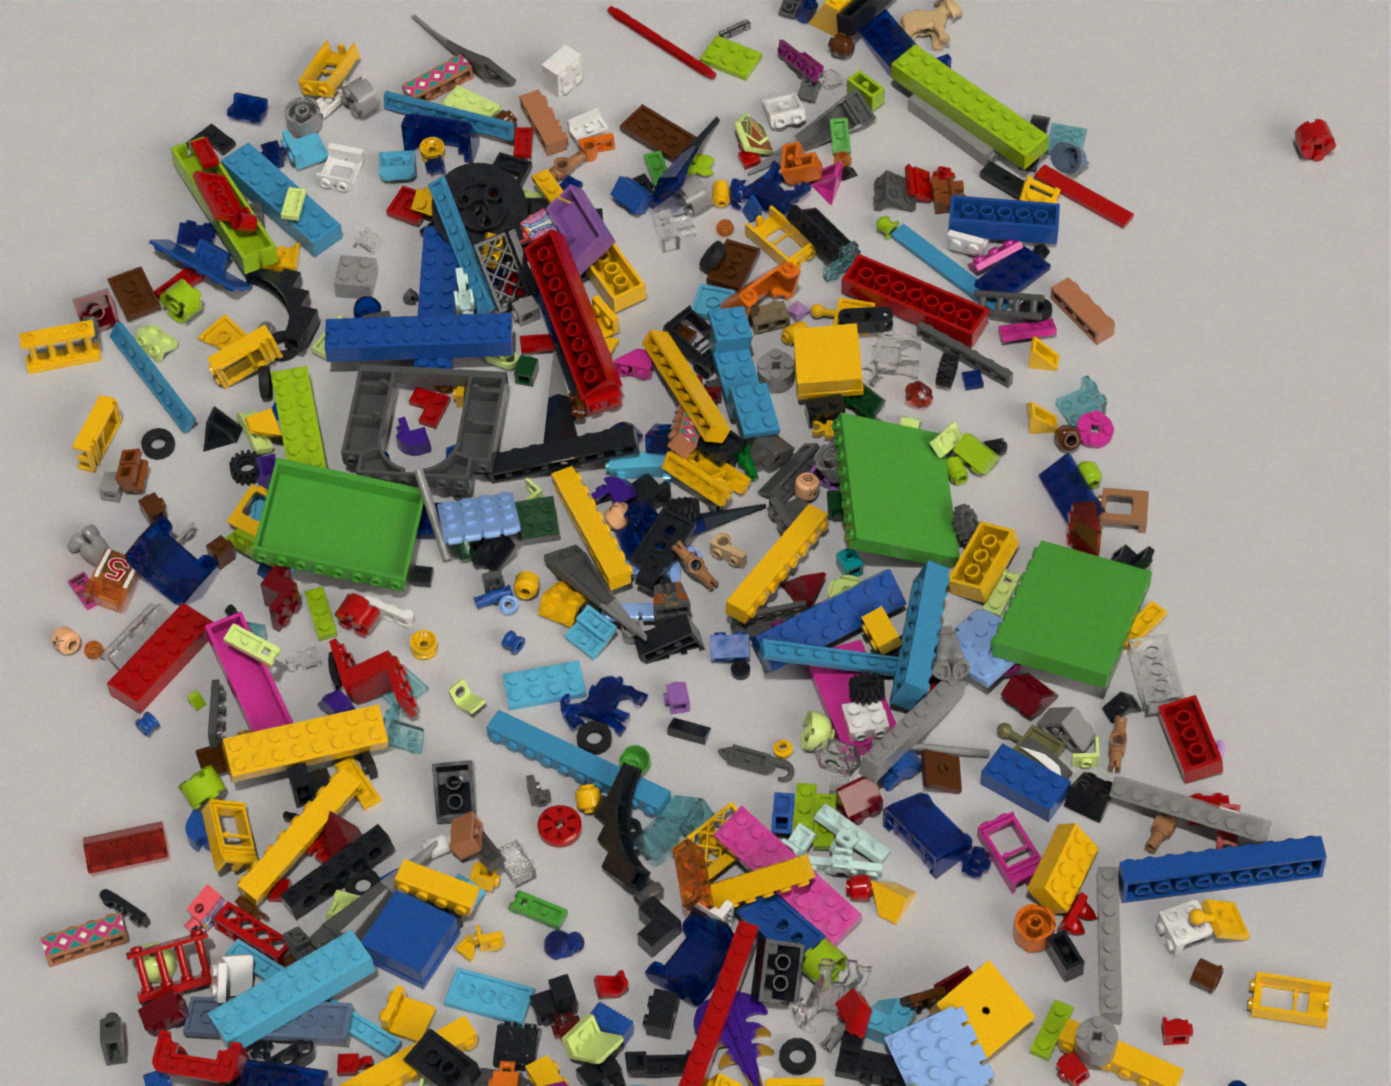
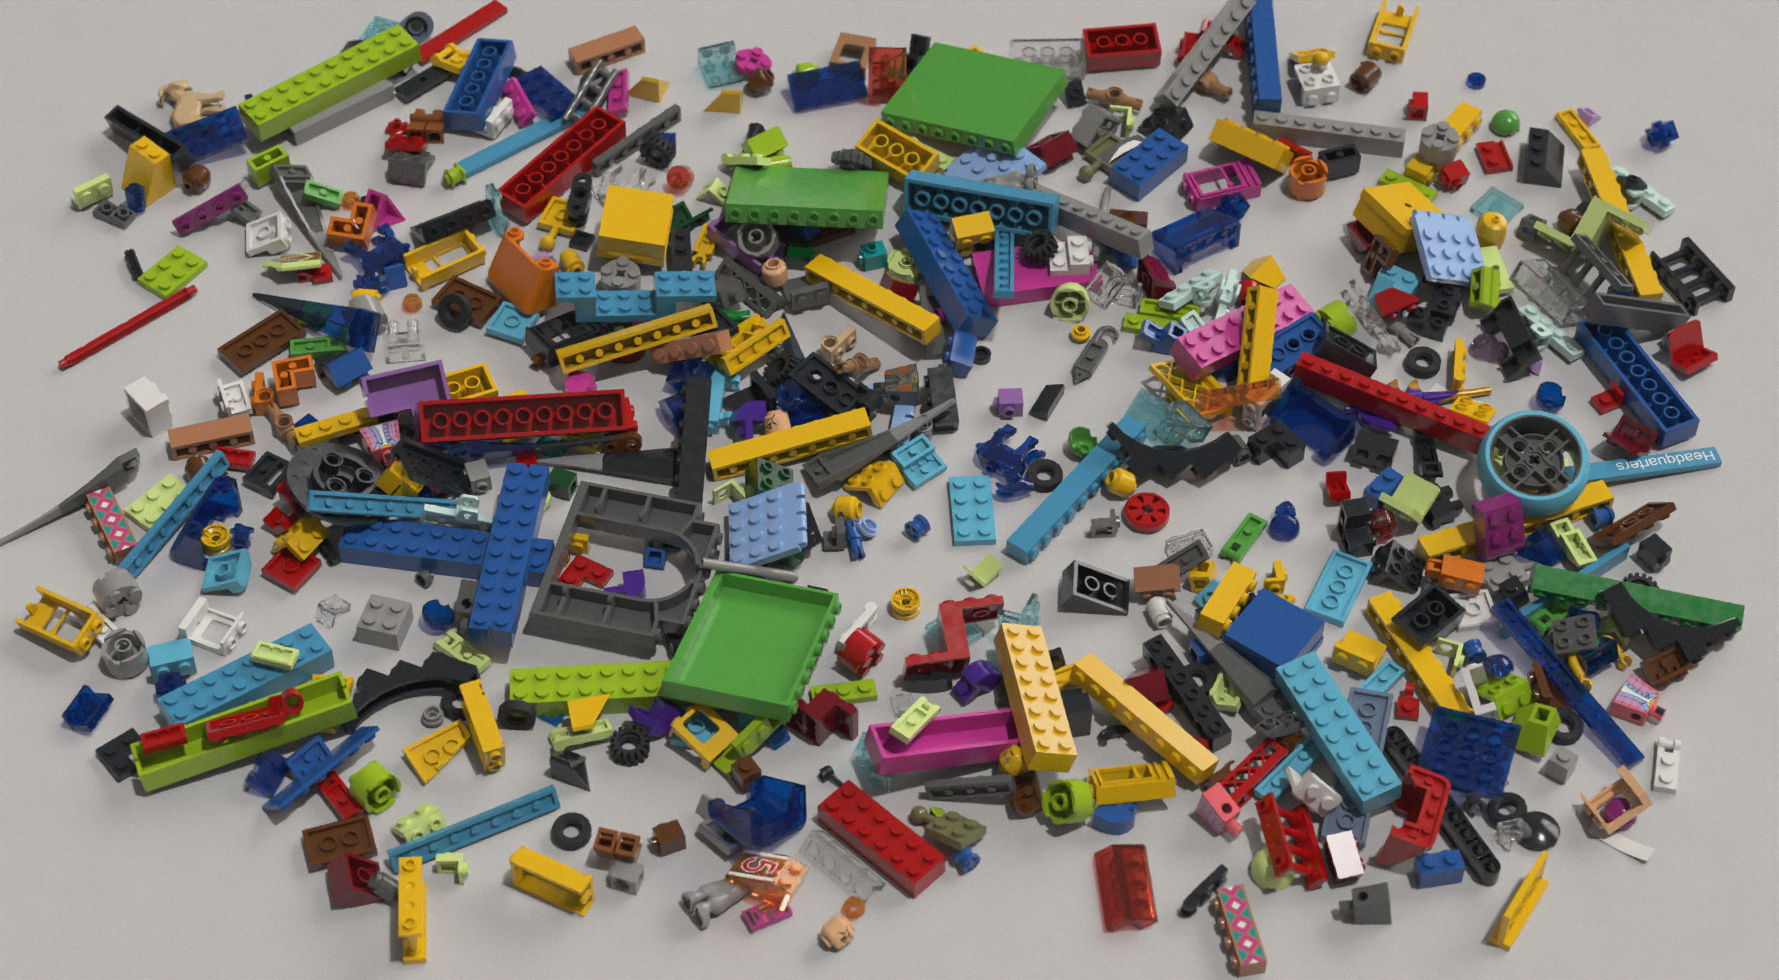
camera: 85 degrees left, 5 degrees down
(114, 375) = (452, 863): none -> yellowish green bracket
(173, 708) = (949, 828): none -> olive plate
(612, 157) = (290, 375): none -> orange brick

